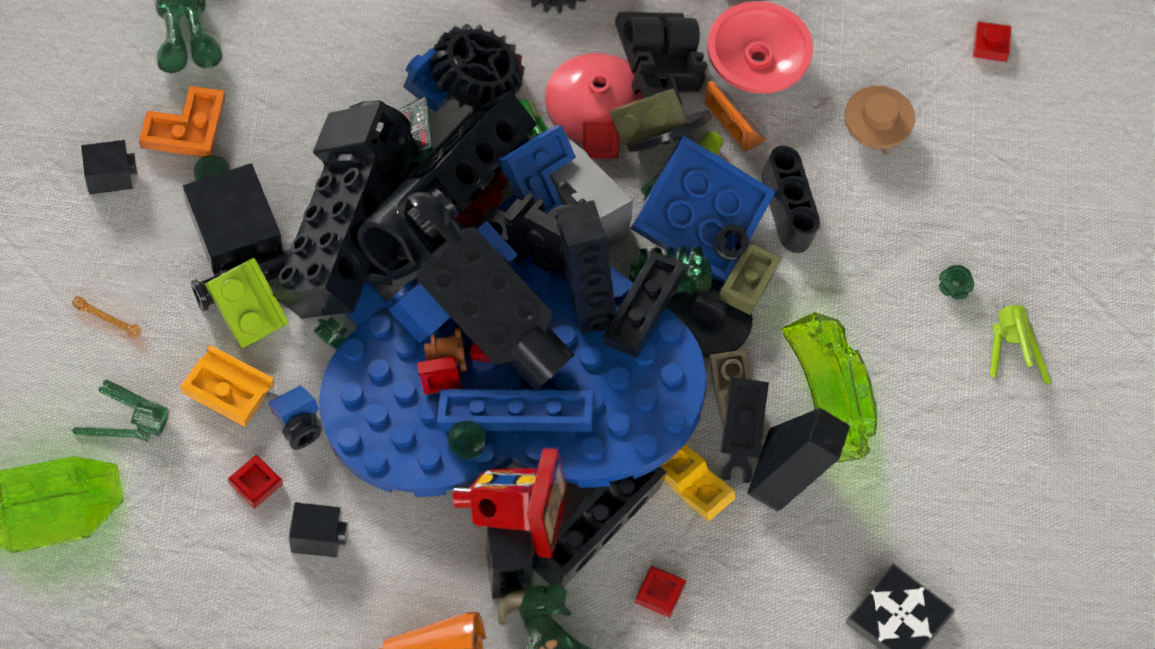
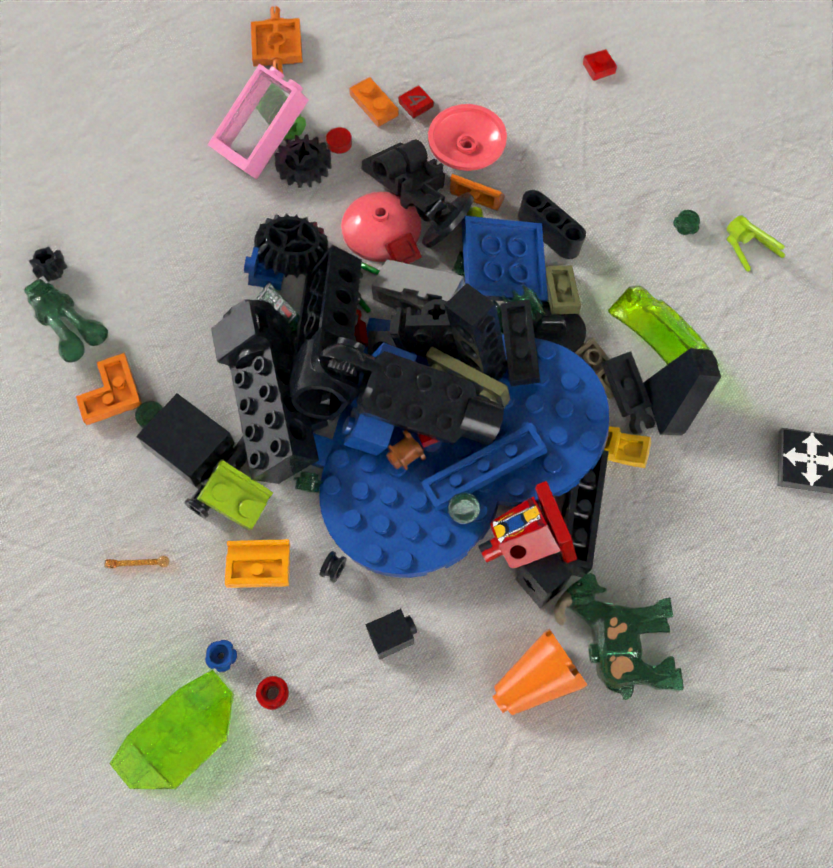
camera: 25 degrees left, 5 degrees up
(108, 166) = (71, 451): black brick -> none
(133, 445) = (215, 649): none -> blue plate
(147, 415) = (214, 620): clear green plant -> none
(158, 510) = (263, 688): none -> red plate
(255, 481) = (321, 622): red tile -> none
(292, 404) = (315, 550): blue tile -> none
(439, 375) = (411, 472): red tile -> none
(532, 163) = (378, 288): blue plate -> none
(575, 333) = (484, 385): none -> olive plate
(648, 116) = (431, 216): olive plate -> none
(660, 591) = (648, 535): red tile -> none
(741, 244) = (544, 270): black bush -> none
(879, 117) = (570, 143): medium nougat piece -> none

